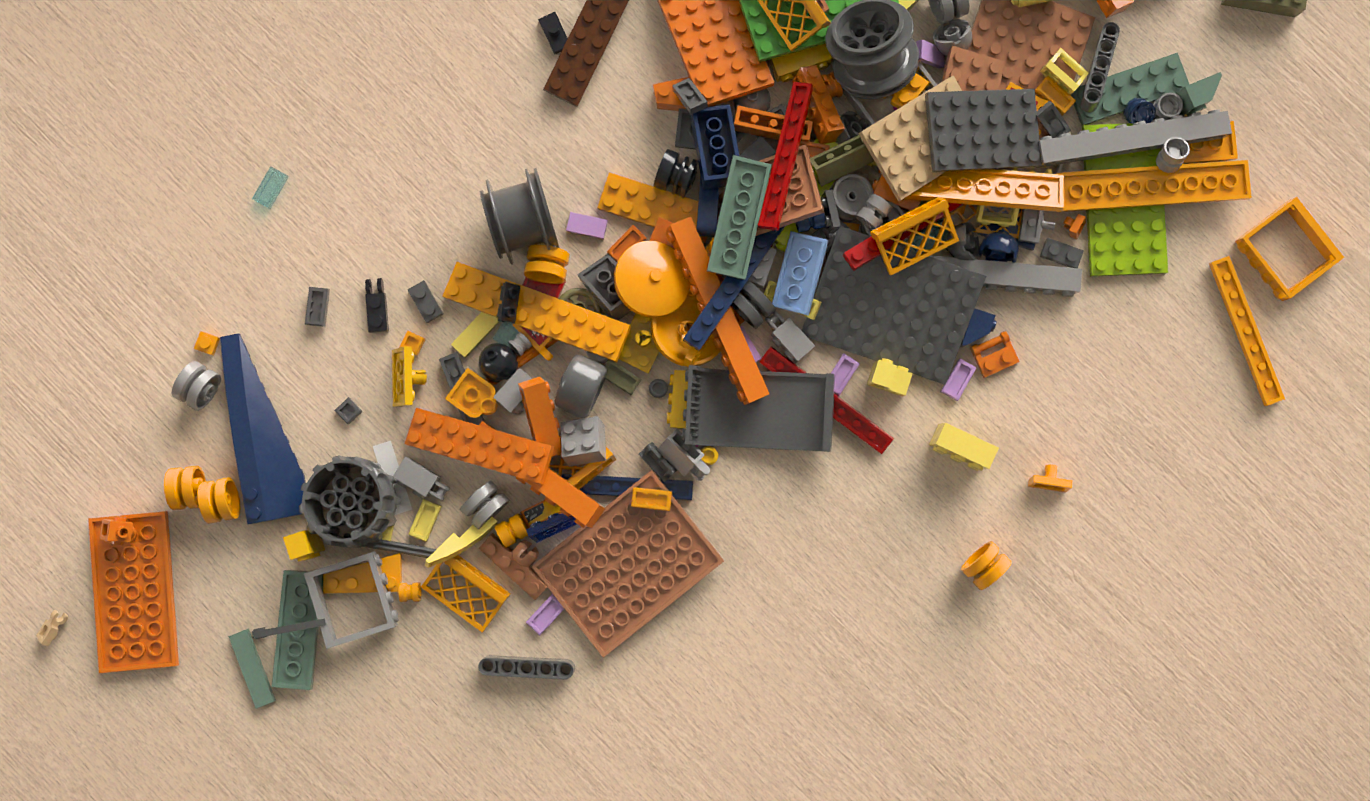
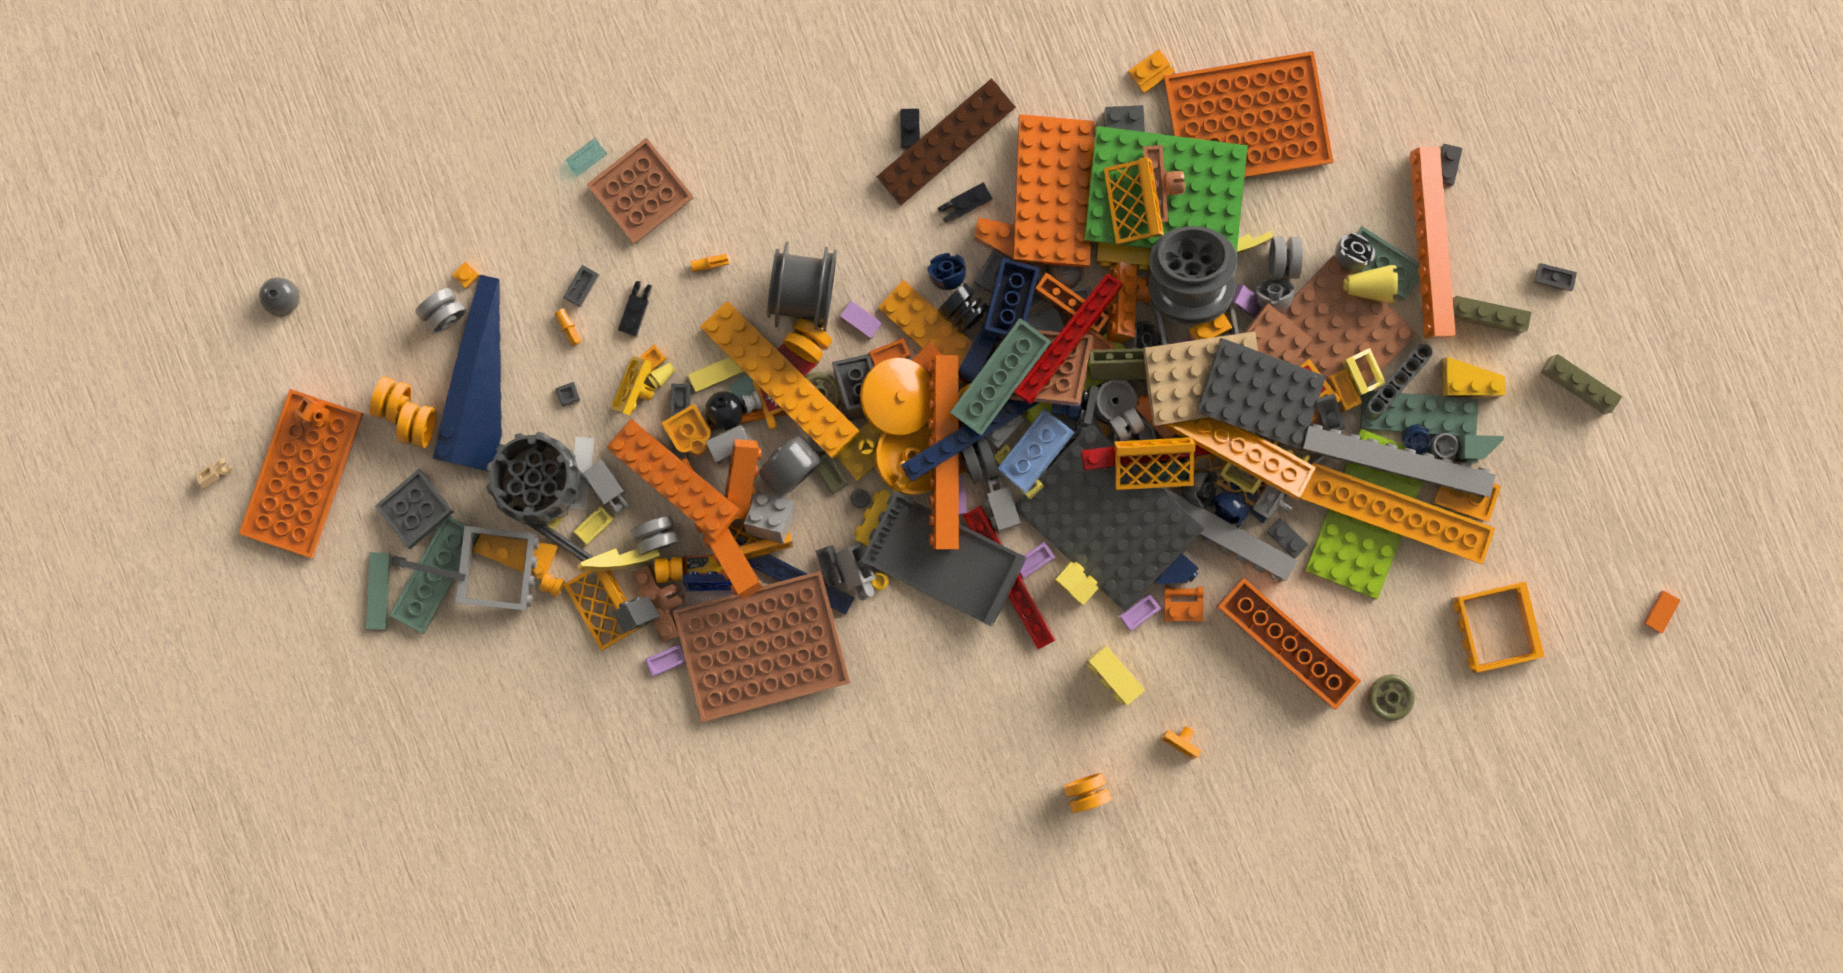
camera: 20 degrees right, 0 degrees up
(42, 438) = (279, 296): none -> dark grey cylinder
(252, 578) = (414, 509): none -> dark grey plate
(303, 545) = (475, 500): yellow brick -> none
(321, 349) = (568, 327): none -> light orange axle
(333, 196) = (640, 191): none -> nougat plate
(425, 234) = (709, 262): none -> light orange axle
(425, 301) = (682, 324): dark grey plate -> none
(425, 357) = (659, 376): none -> light yellow cone
(498, 584) = (635, 614): none -> dark grey brick
(509, 297) = (761, 356): black hinge -> none
(517, 670) = (618, 700): dark grey beam -> none
(635, 77) = (966, 202): none -> black hinge
(646, 146) = (947, 271): none -> dark blue cylinder
(651, 499) = (808, 597): light orange plate -> none
(690, 96) = (1006, 244): dark grey plate -> none
(1075, 226) = (1310, 518): orange tile -> none
(1107, 348) = (1288, 643): none -> orange brick
(1162, 38) = (1467, 380): none -> yellow wedge
(1172, 154) = (1425, 492): light grey wheel -> none
(1232, 345) = (1400, 711): none -> olive plate
(1246, 331) = (1425, 685): light orange plate -> none

